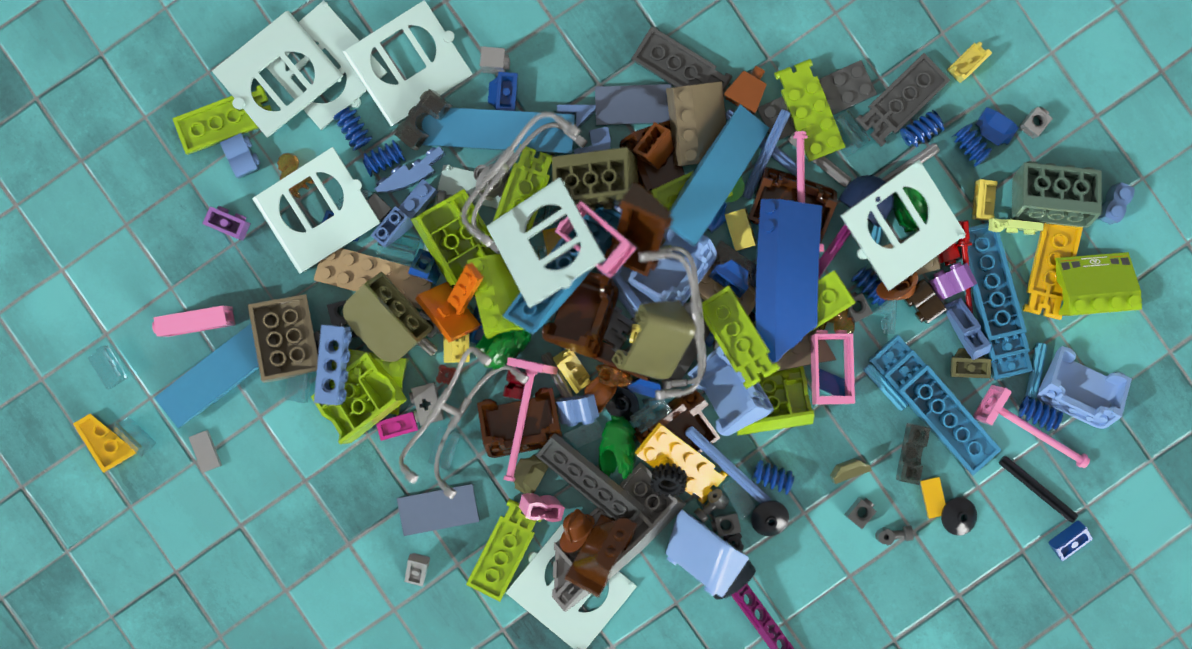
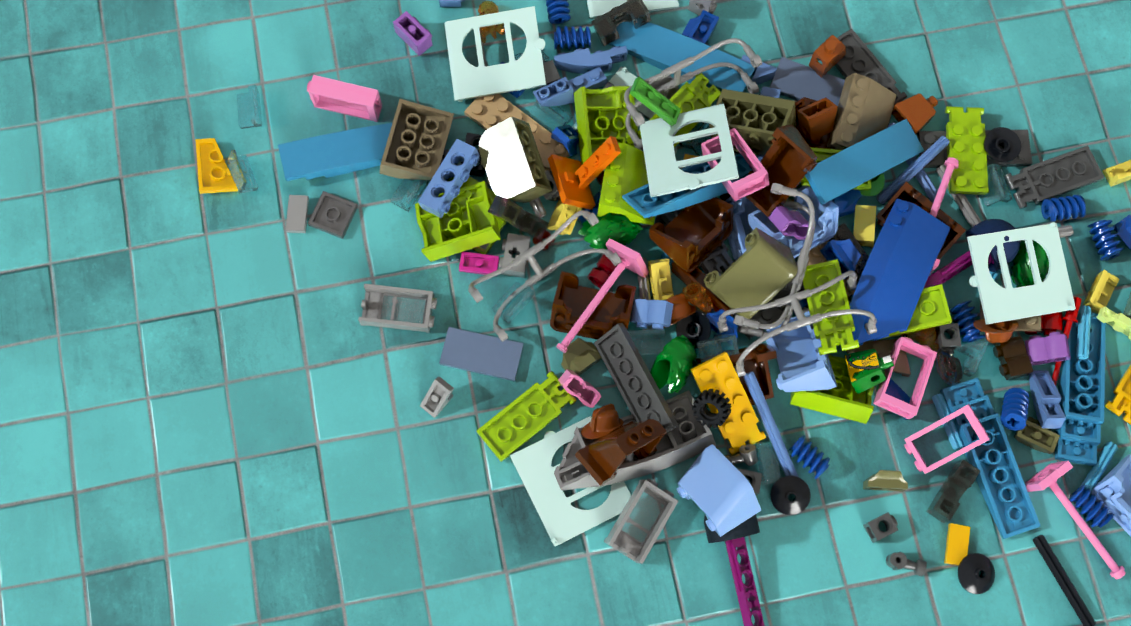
camera: 20 degrees right, 15 degrees down
(238, 437) = (333, 214): none -> flat silver tile
(342, 502) = (398, 308): none -> door
(403, 374) = (517, 217): none -> clear smoke arch
(493, 208) = (655, 101): none -> bright green tile
(639, 70) = (829, 53): none -> dark orange torso
(647, 600) = (641, 520): none -> door
(669, 275) = (789, 222): none -> medium lavender brick
(718, 374) = (802, 320): none -> light grey bar
(795, 378) = (867, 369): none -> green torso
(850, 88) = (1007, 139): none -> black dish
(868, 338) = (948, 366): none -> clear smoke tile
(906, 385) = (973, 420): none -> bright pink window
(942, 352) = (1015, 409): none -> blue piece
(981, 250) = (1083, 332): none -> medium azure axle

